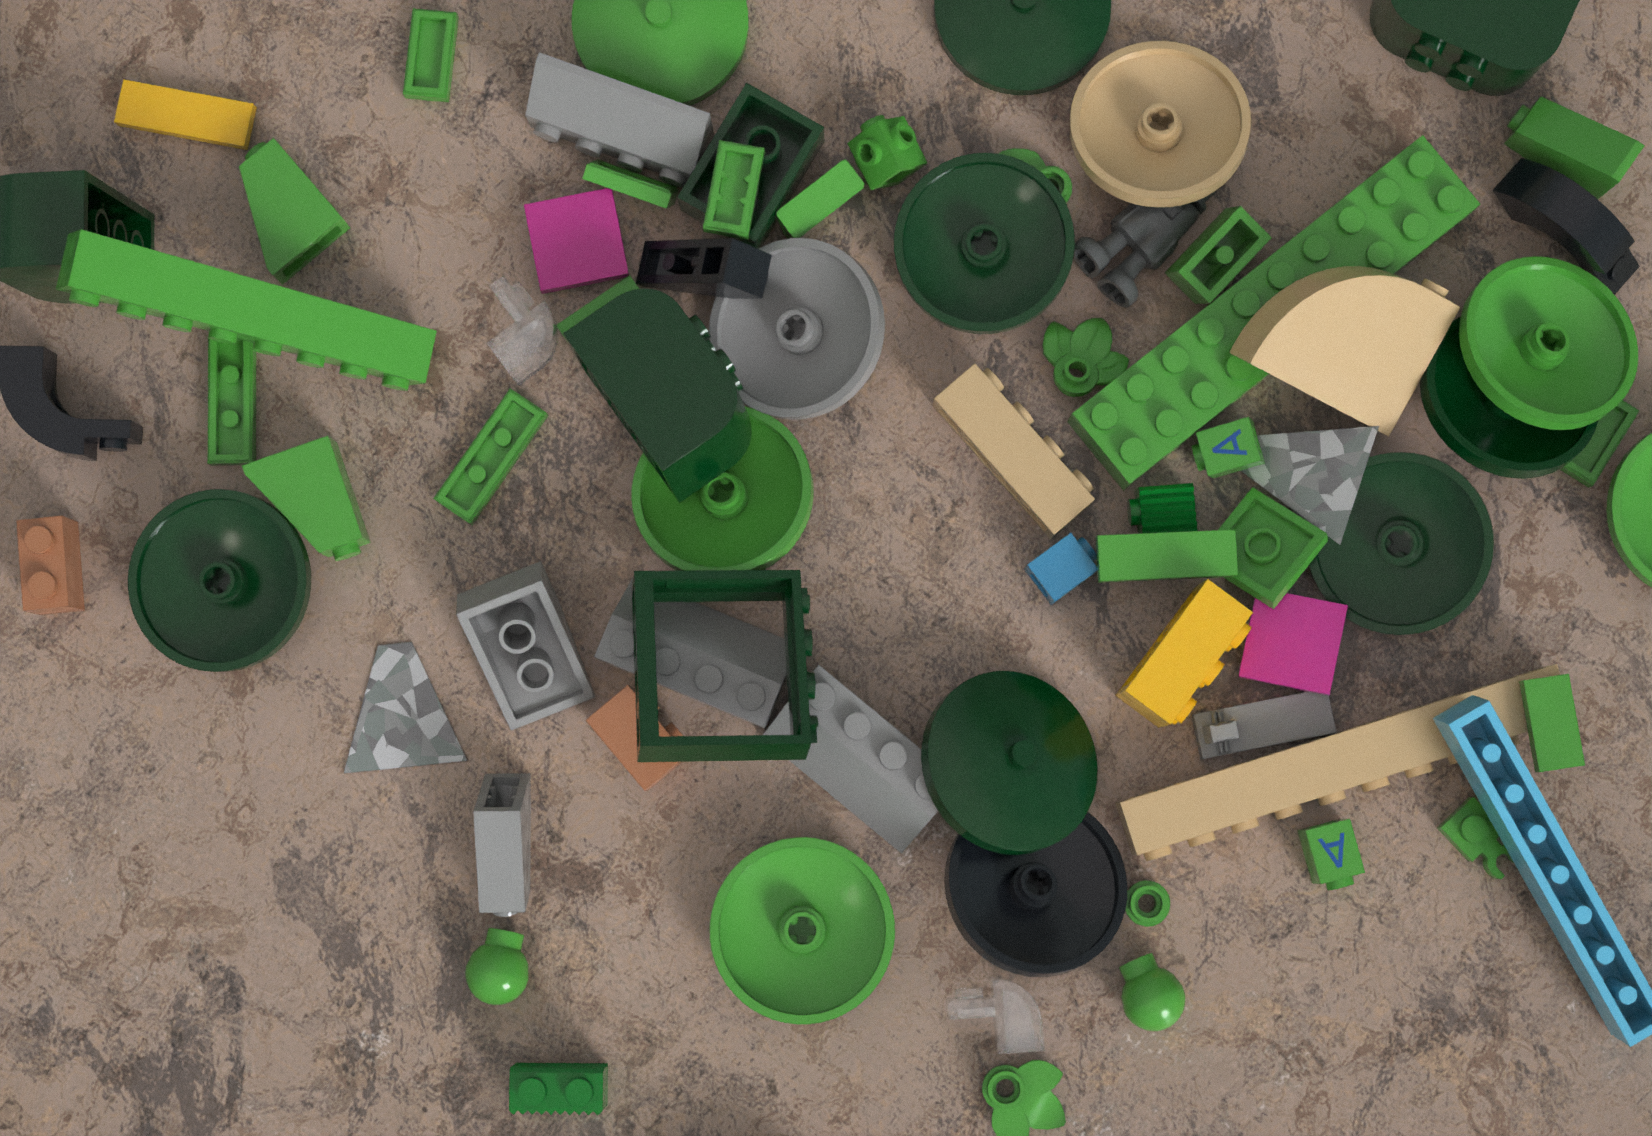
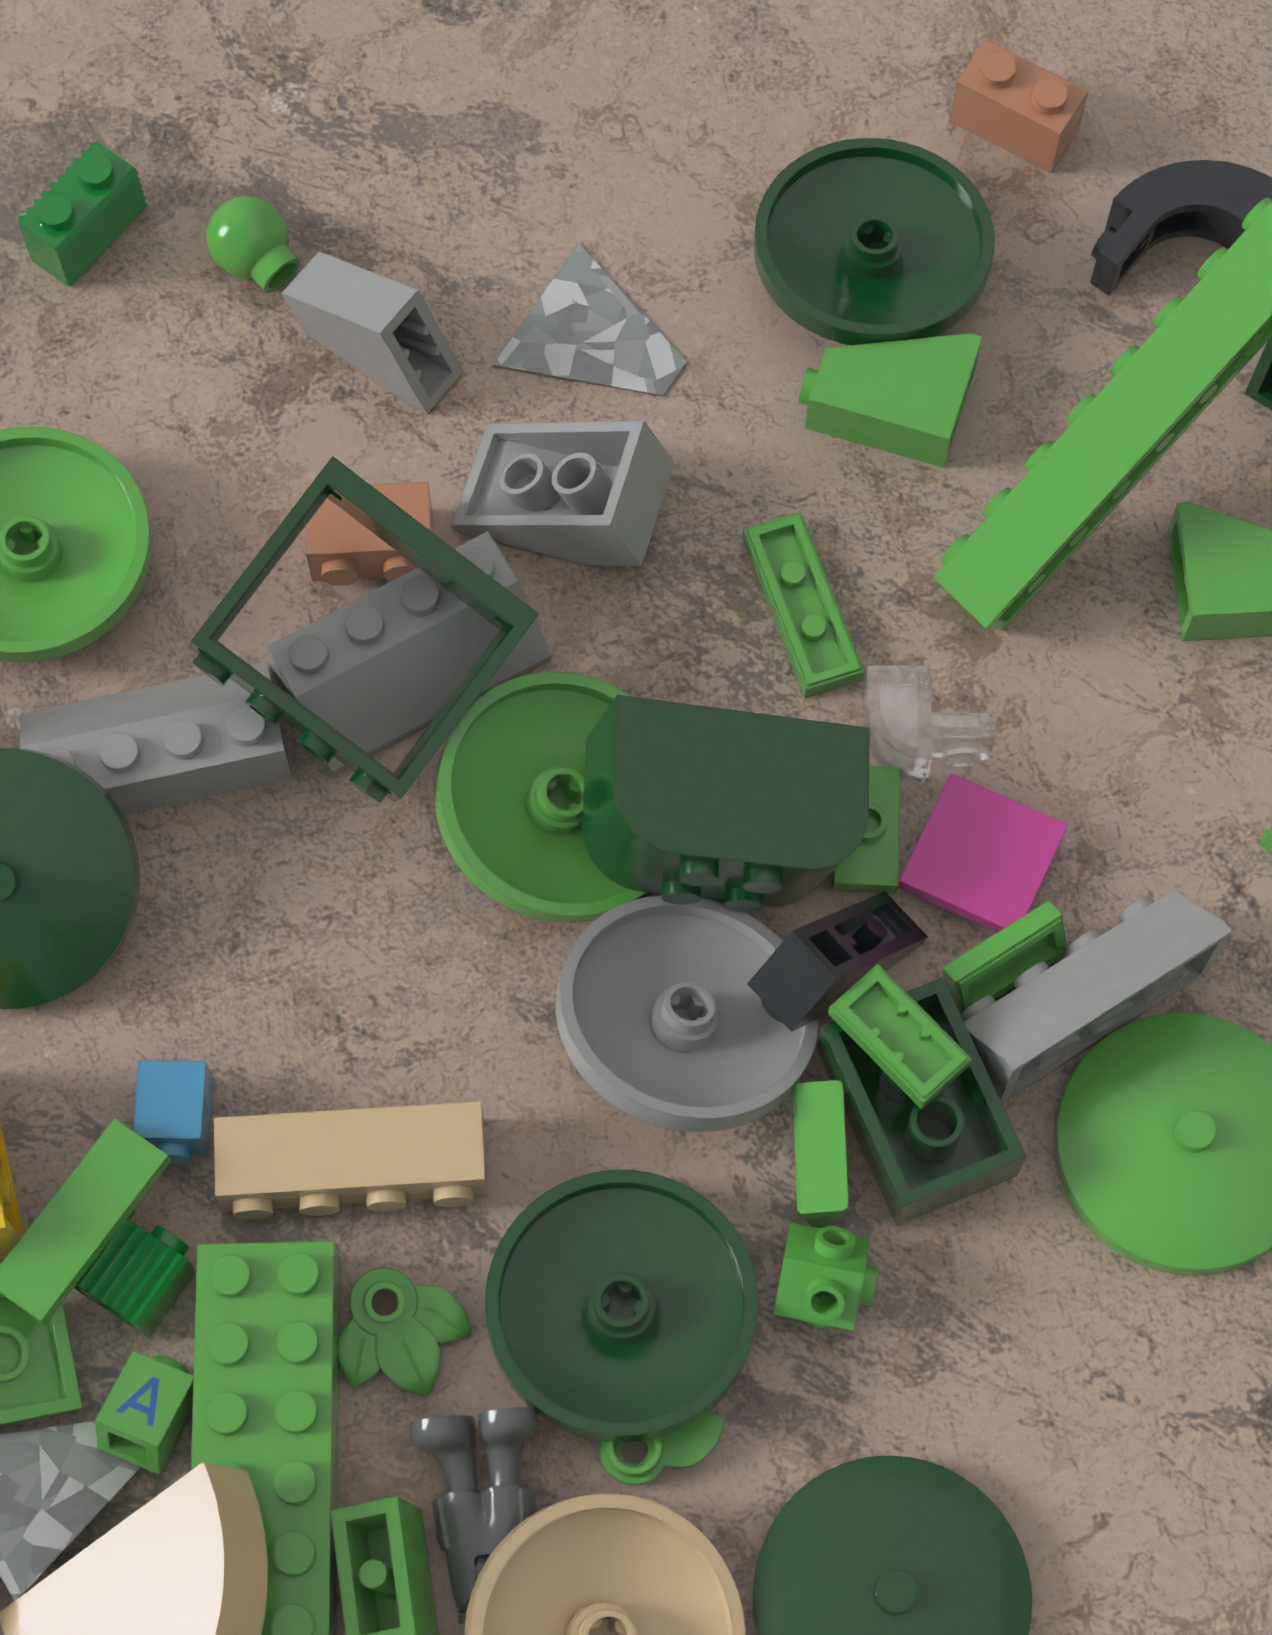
camera: 125 degrees right, 15 degrees down
(231, 403) = (1041, 374): bright green tile -> none

